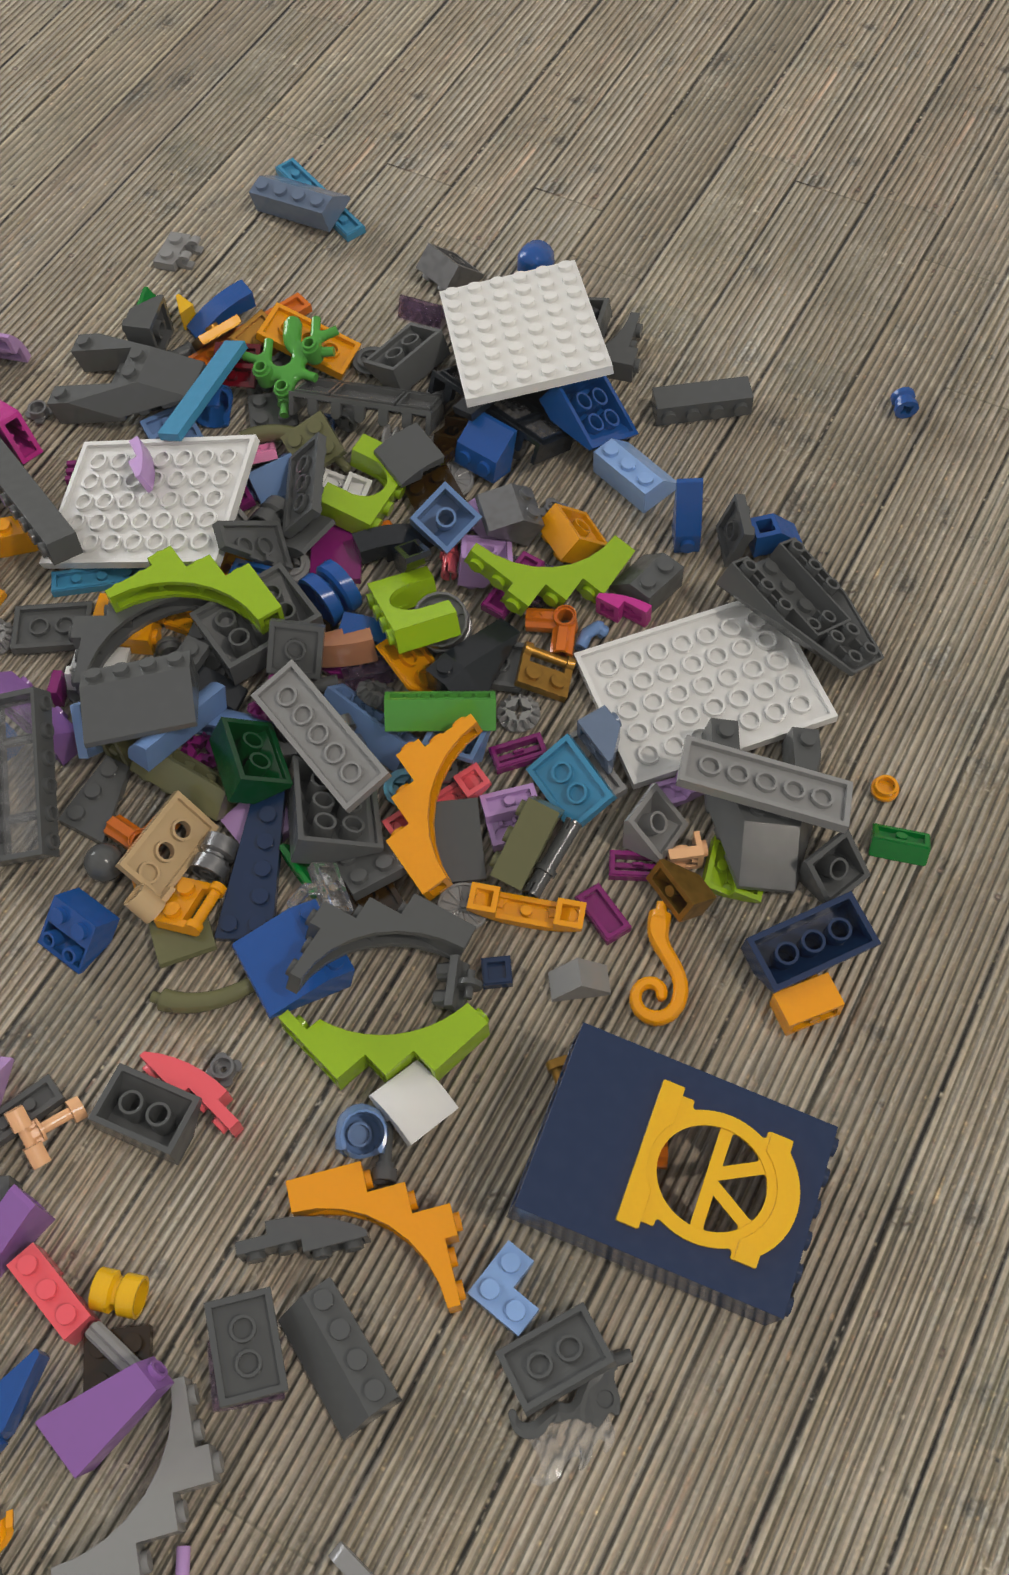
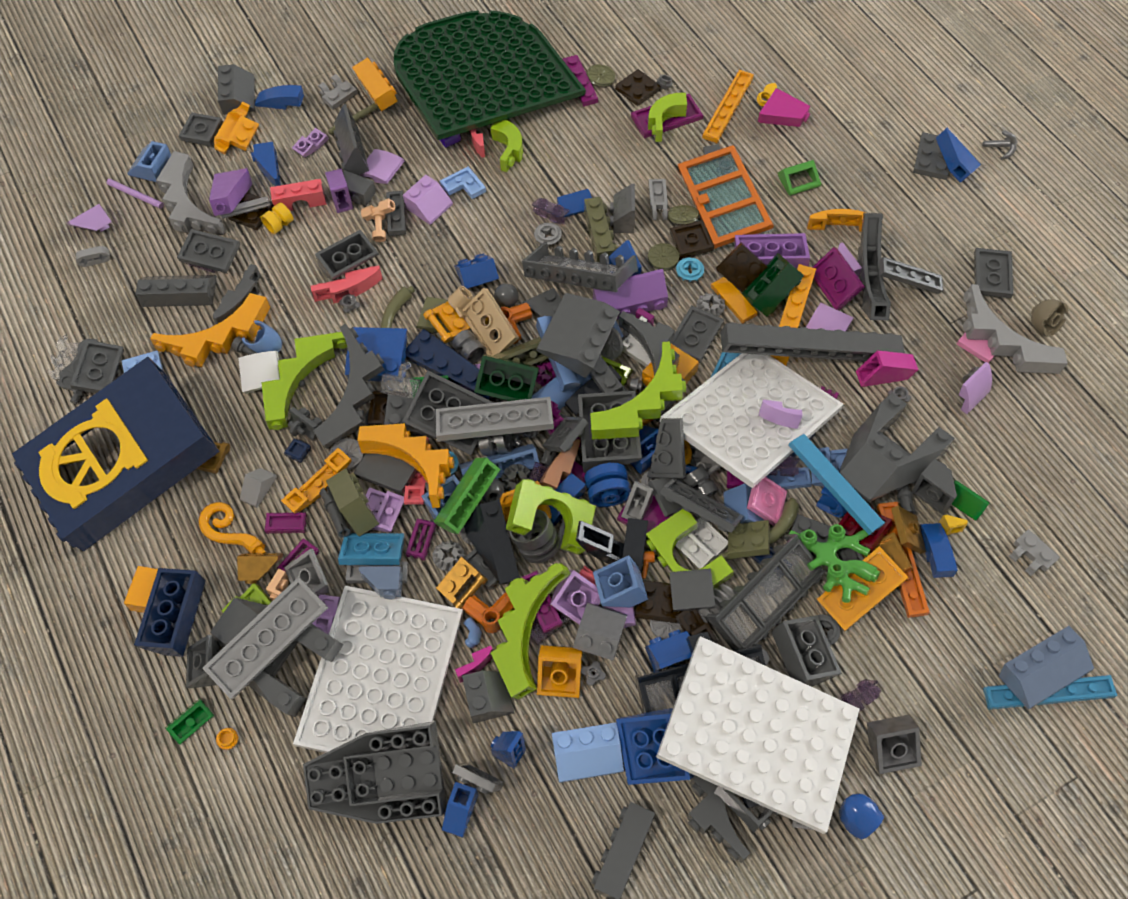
camera: 120 degrees right, 0 degrees up
(328, 549) = (638, 501): none -> light grey slope

